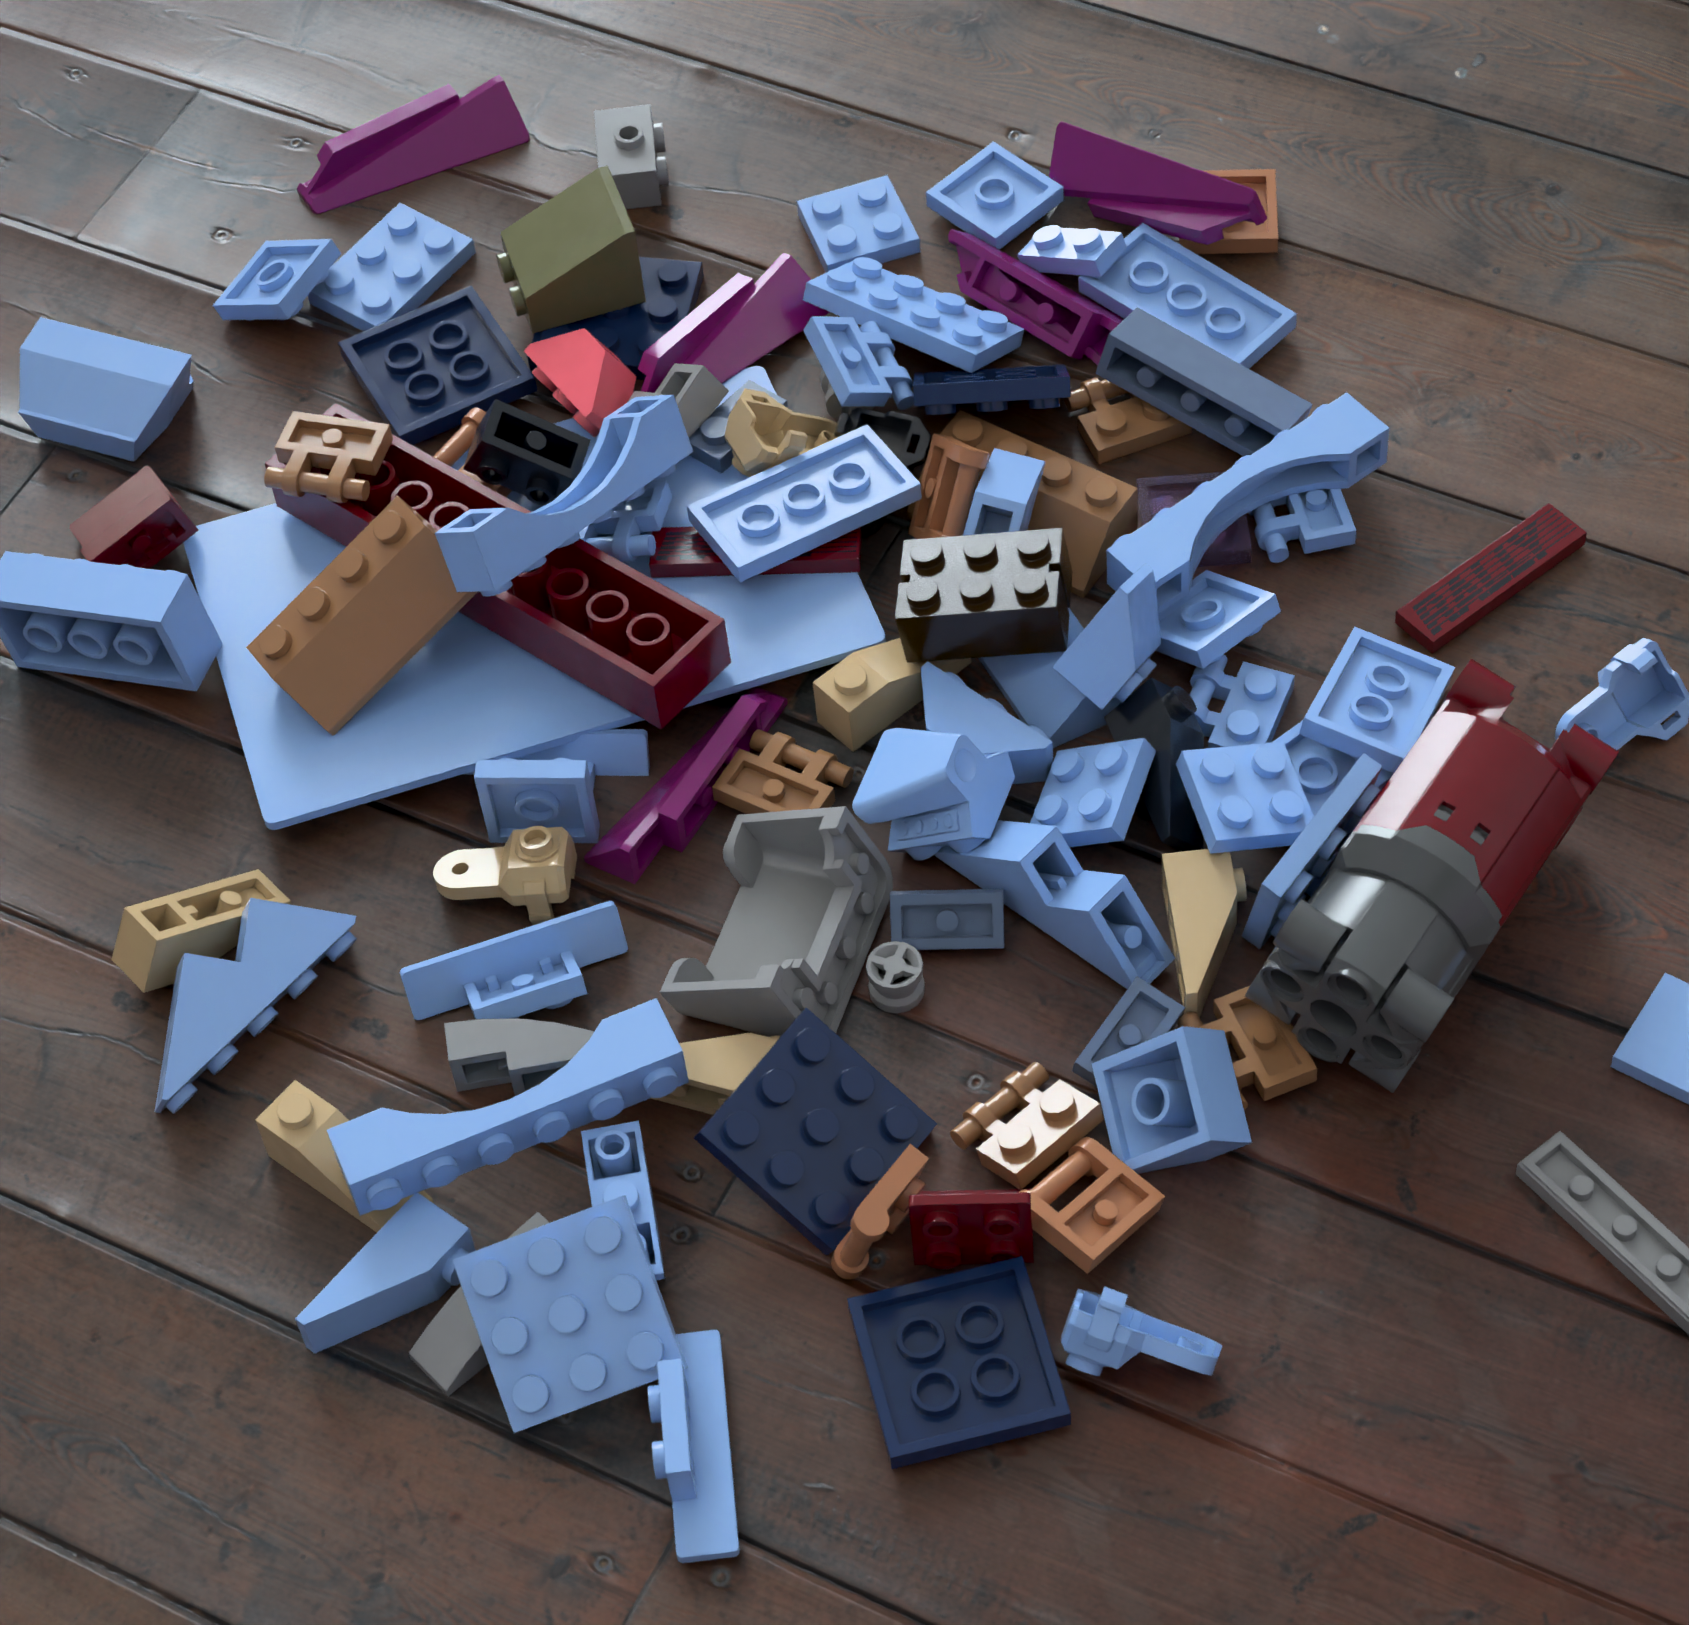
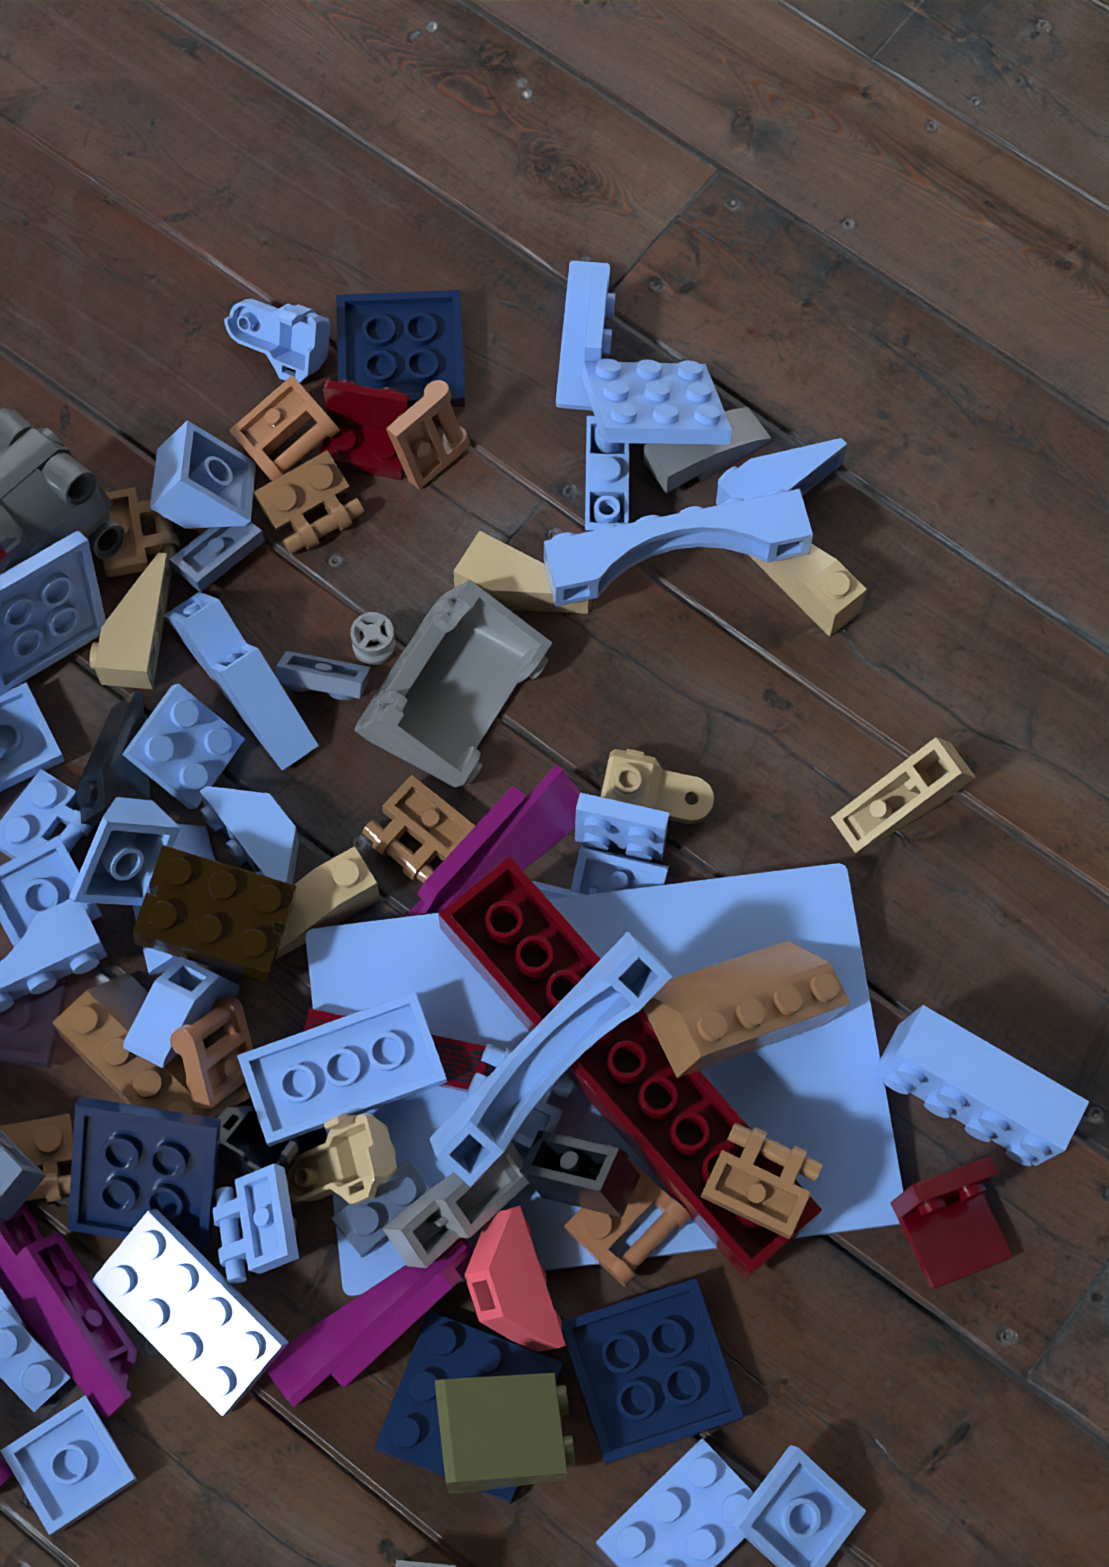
camera: 175 degrees left, 15 degrees up
(99, 388) = (976, 1411): light blue helmet -> none
(225, 998) = (885, 714): light blue slope -> none
(509, 1051) = (655, 627): light grey slope -> none
(519, 969) = (656, 692): light blue bracket -> none
(814, 1130) = (459, 511): dark blue plate -> none
(858, 223) = (211, 1469): light blue plate -> none
(933, 791) = (302, 762): light blue piece -> none
(1245, 796) = (66, 702): light blue plate -> none

